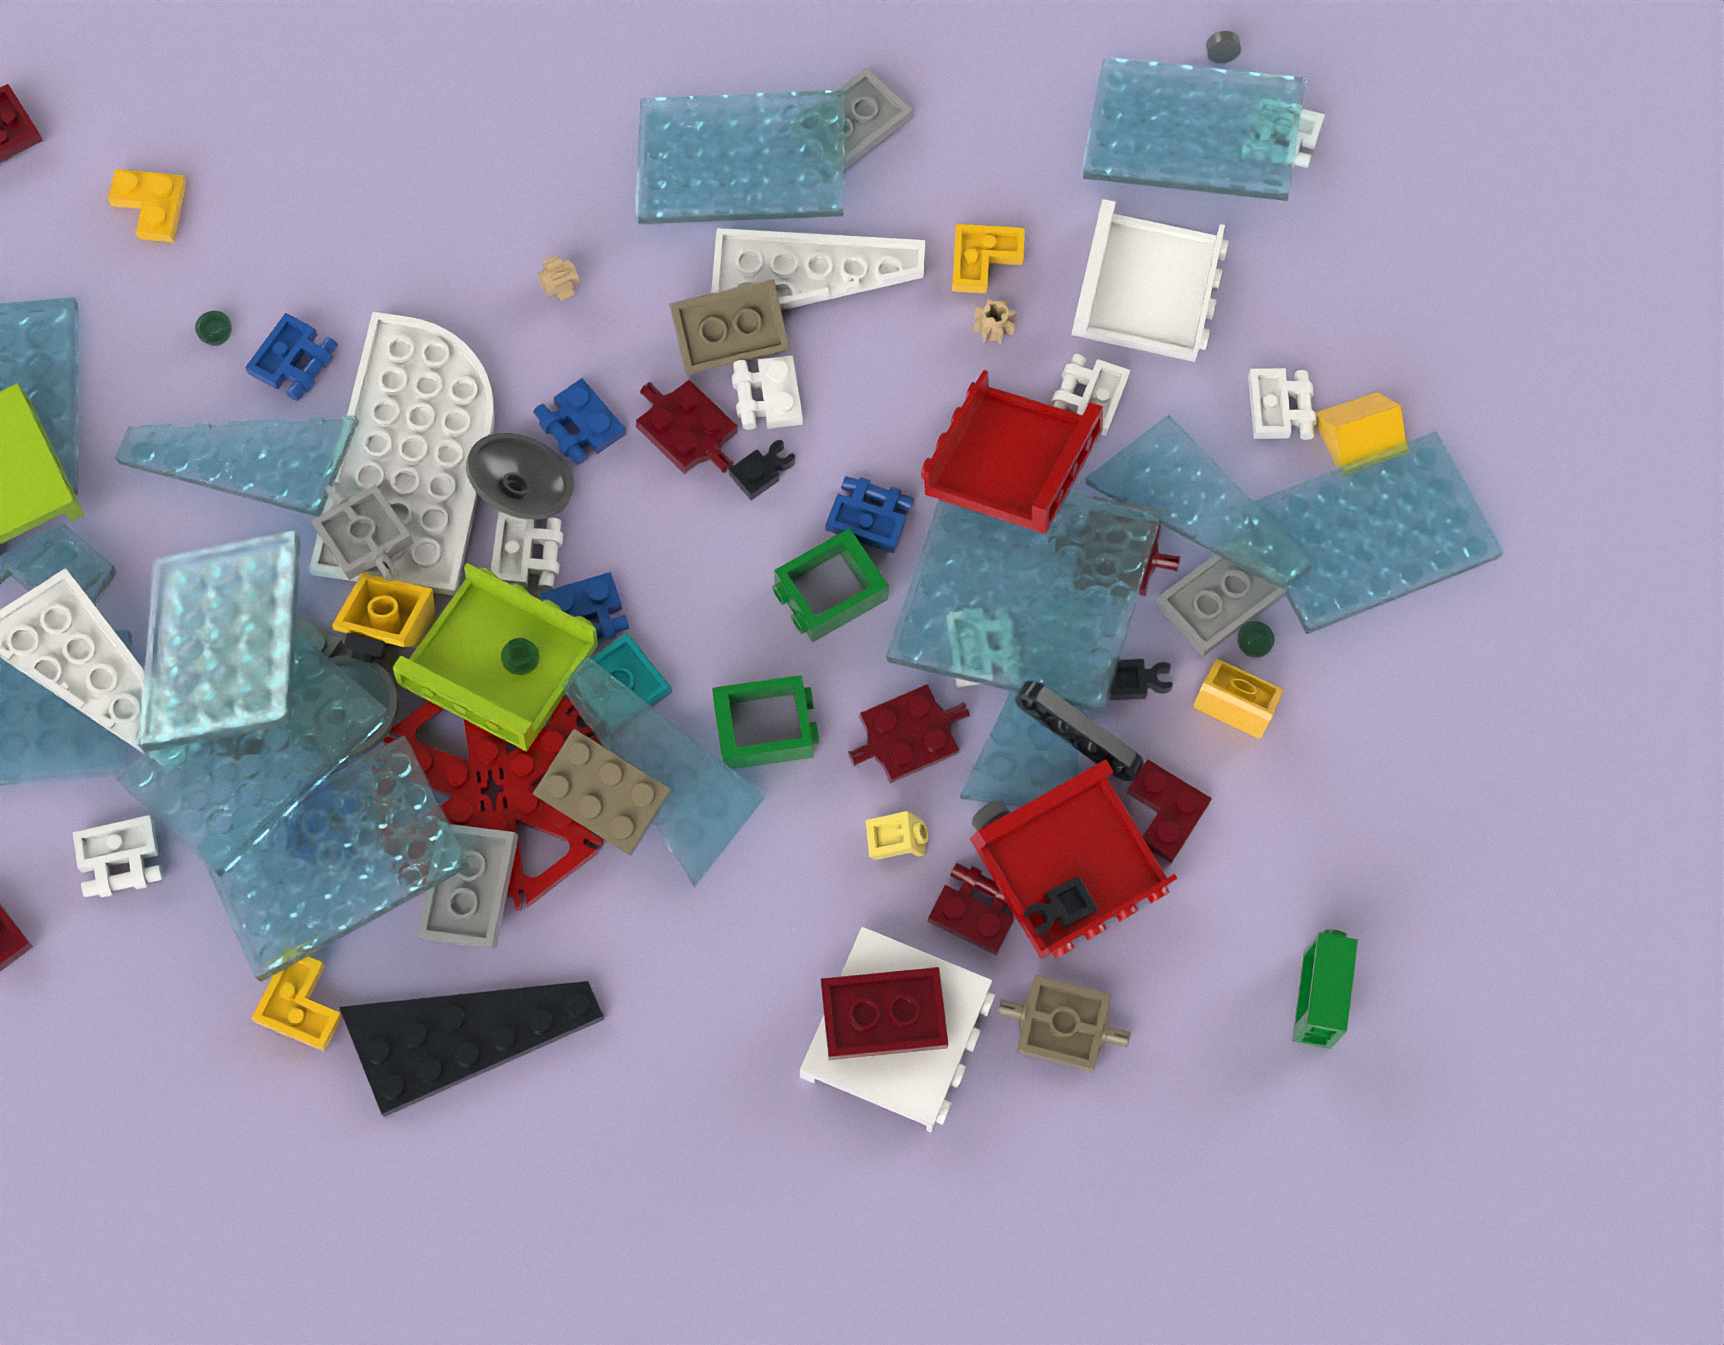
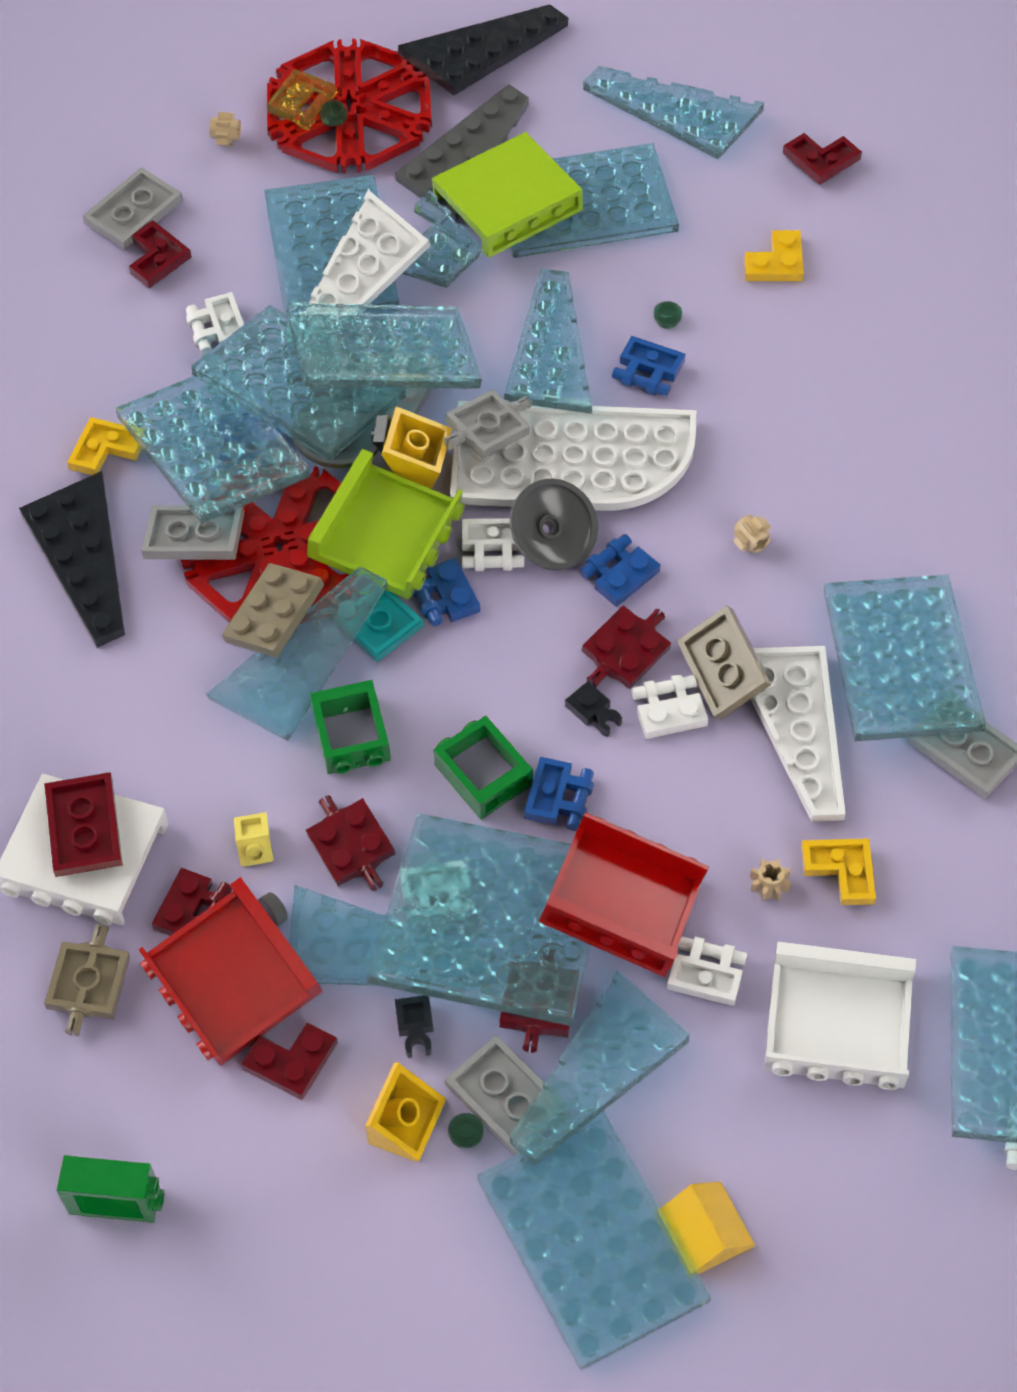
camera: 90 degrees right, 10 degrees down
(520, 656) = (386, 539): clear green plate -> none
(1065, 904) = (186, 964): black plate -> none
(1078, 730) = (350, 967): black beam -> none
(1270, 404) = (722, 1136): white plate -> none

